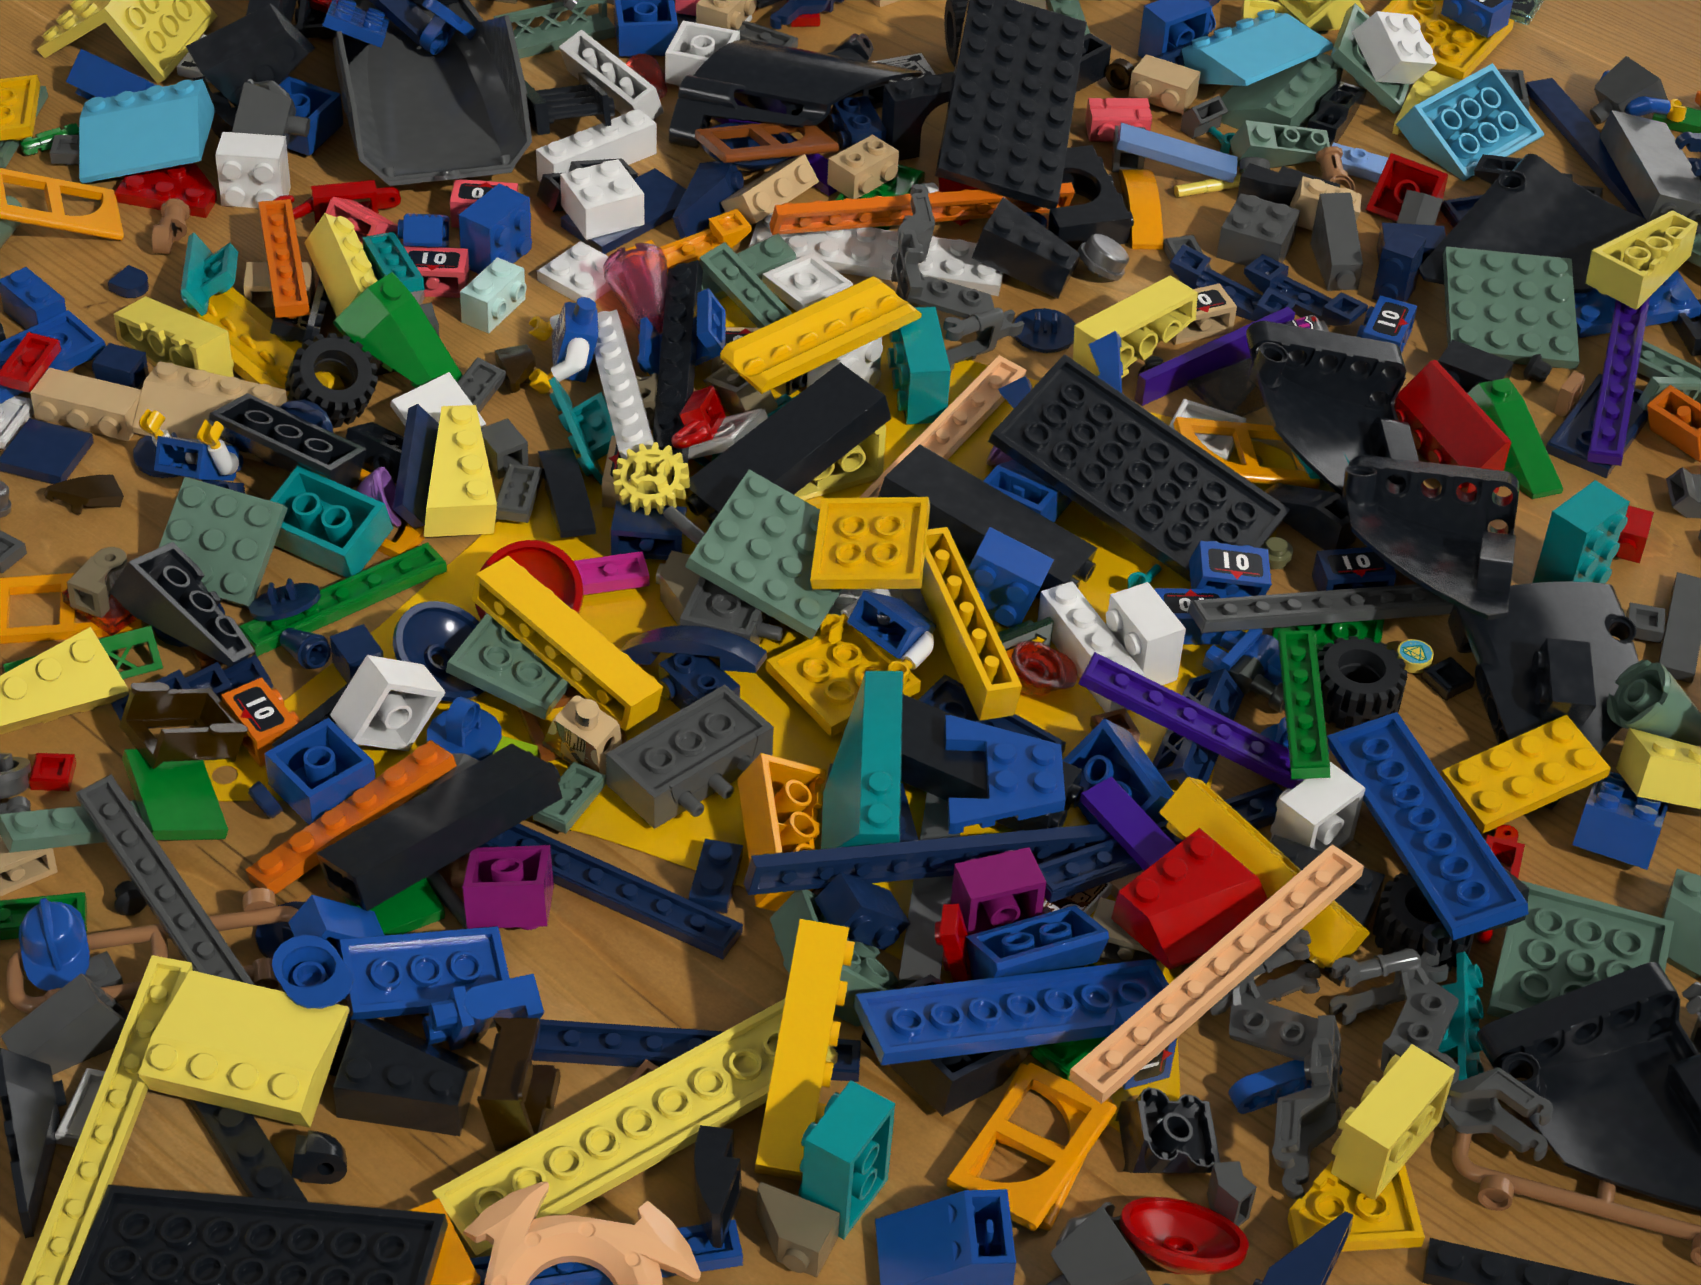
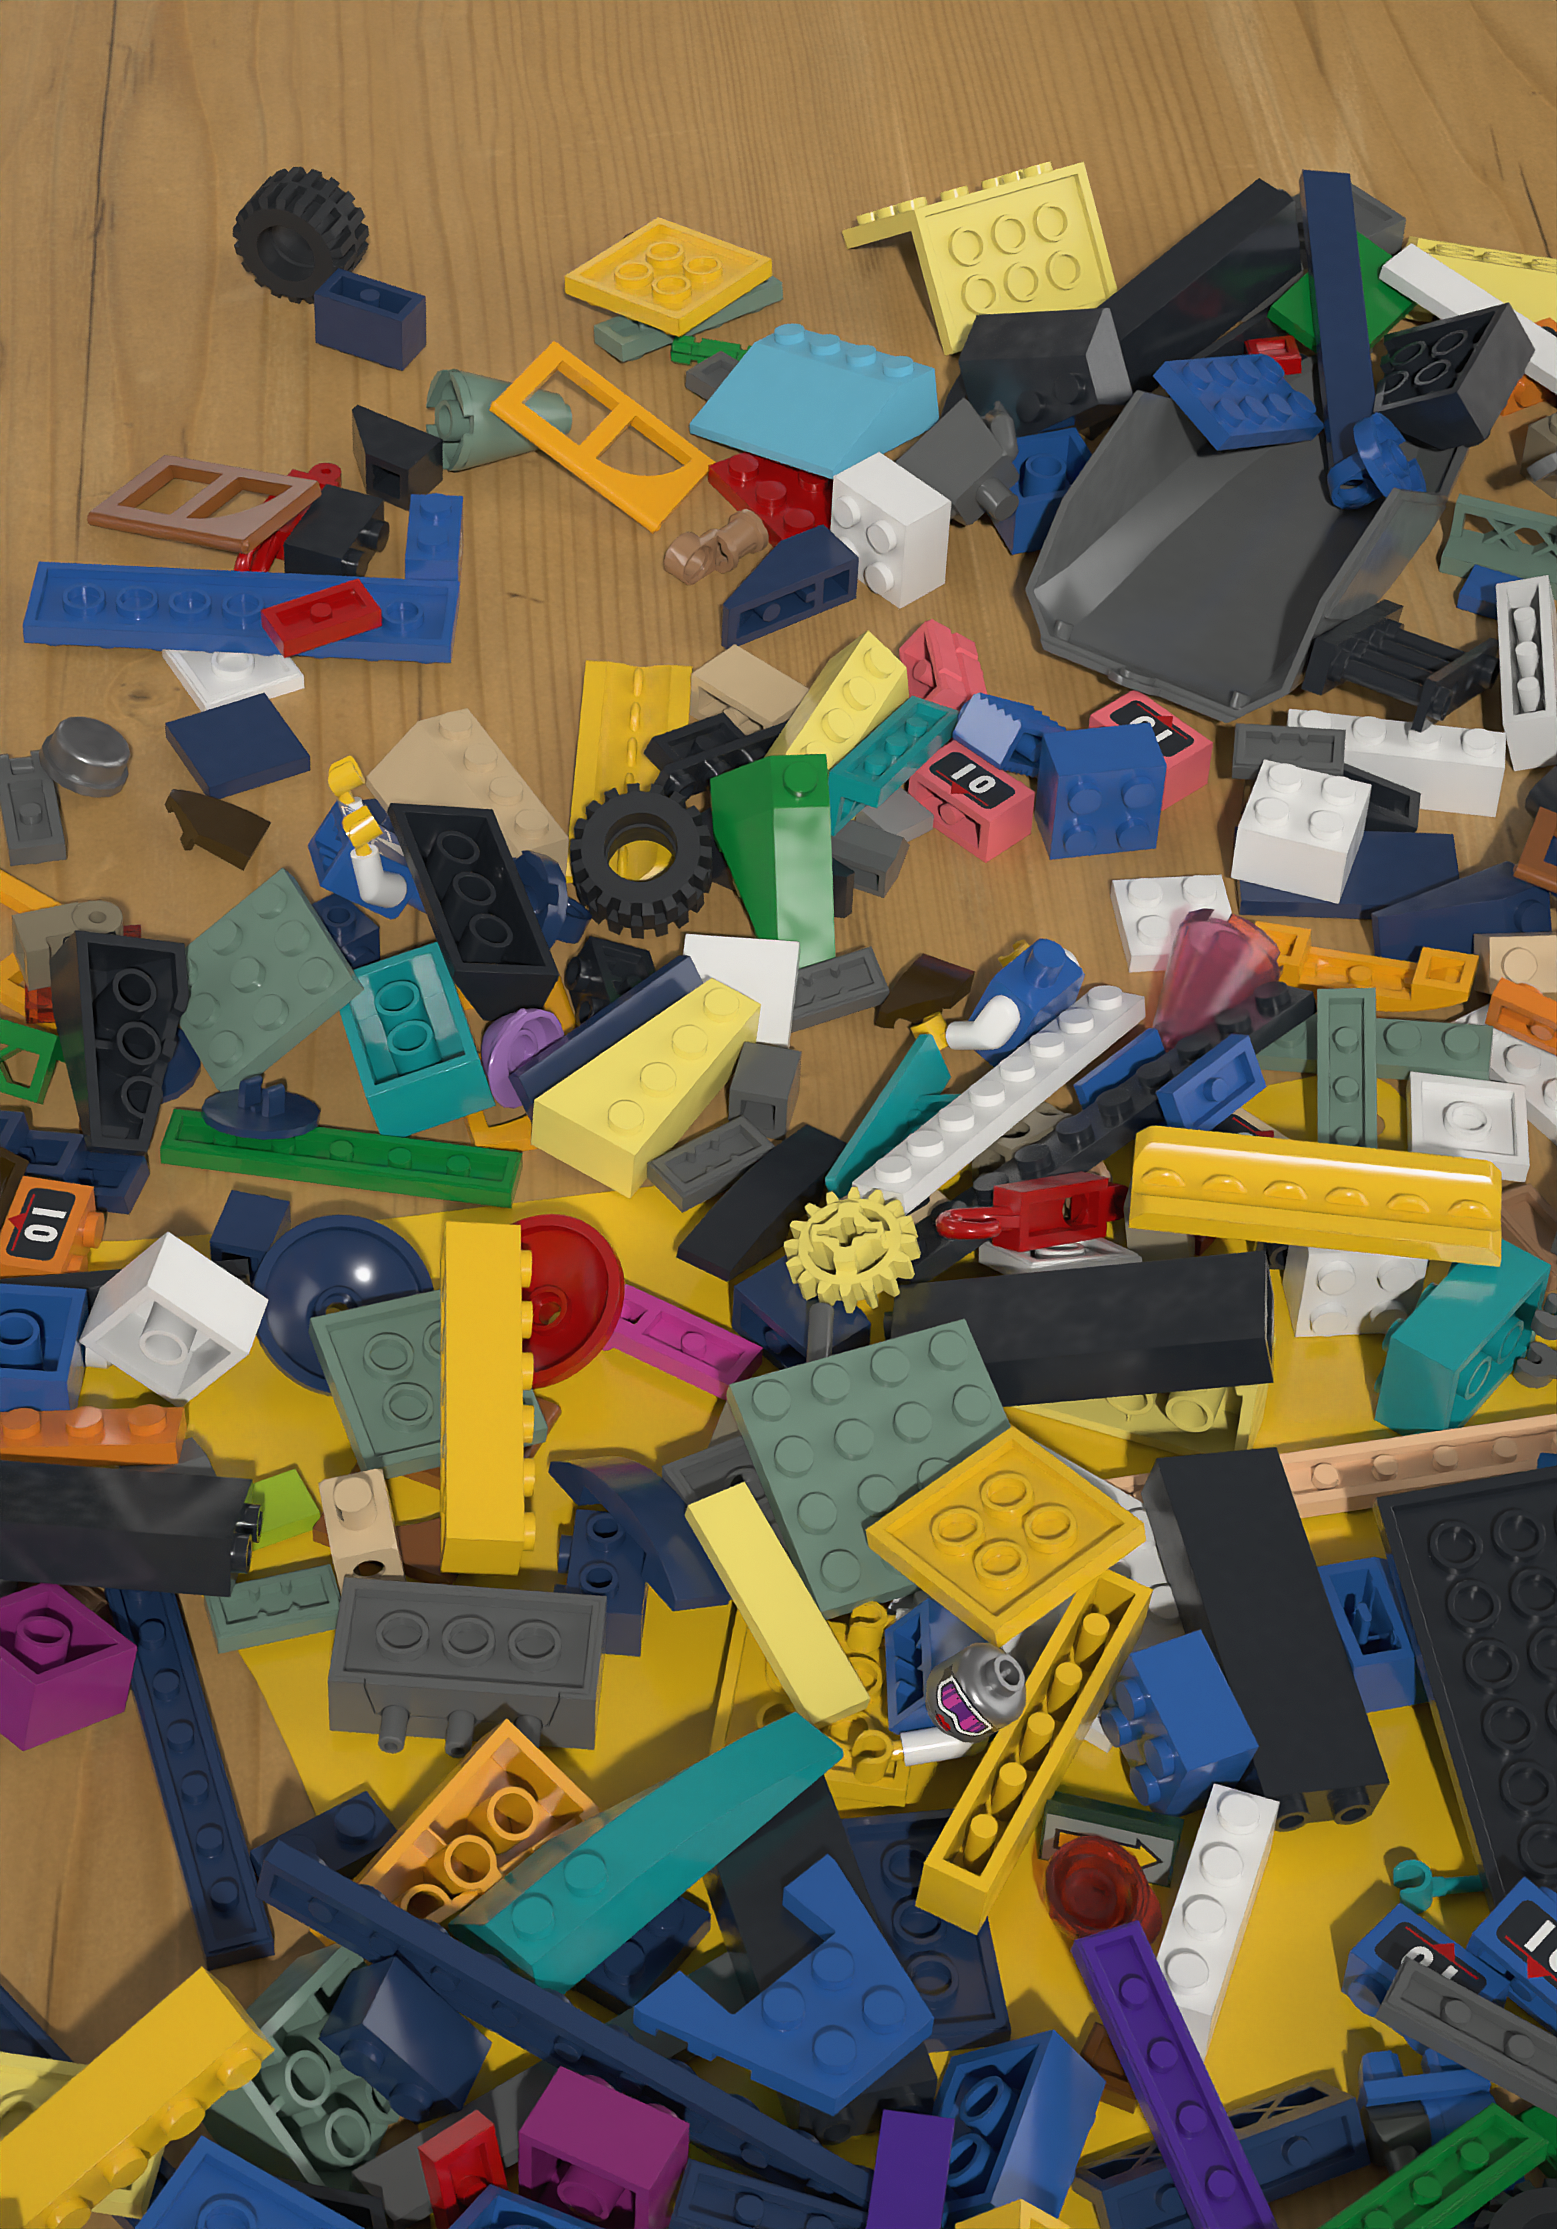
camera: 45 degrees right, 0 degrees up
(85, 403) = (339, 706): tan brick -> none
(102, 78) = (873, 311): blue slope -> none
(121, 366) = (432, 687): dark blue brick -> none
(129, 283) = (590, 592): dark blue tile -> none
(174, 337) = (533, 701): light yellow wedge -> none
(206, 273) = (666, 628): teal bracket -> none
(231, 215) = (790, 585): none -> dark blue slope
(283, 259) = (768, 664): orange plate -> none
(307, 648) = (208, 1187): dark blue cone -> none
(321, 194) = (1002, 667): red piece -> none
(466, 729) = (256, 1429): blue tile -> none
(493, 295) = (1004, 877): light aqua brick -> none
(542, 58) = (1480, 591): none -> blue tile
(548, 170) = (1303, 747): none -> dark grey plate
(795, 641) = (777, 1606): none -> light yellow tile
(935, 609) = (975, 1693): none -> flat silver head
(1147, 631) = (1285, 1960): white brick -> none

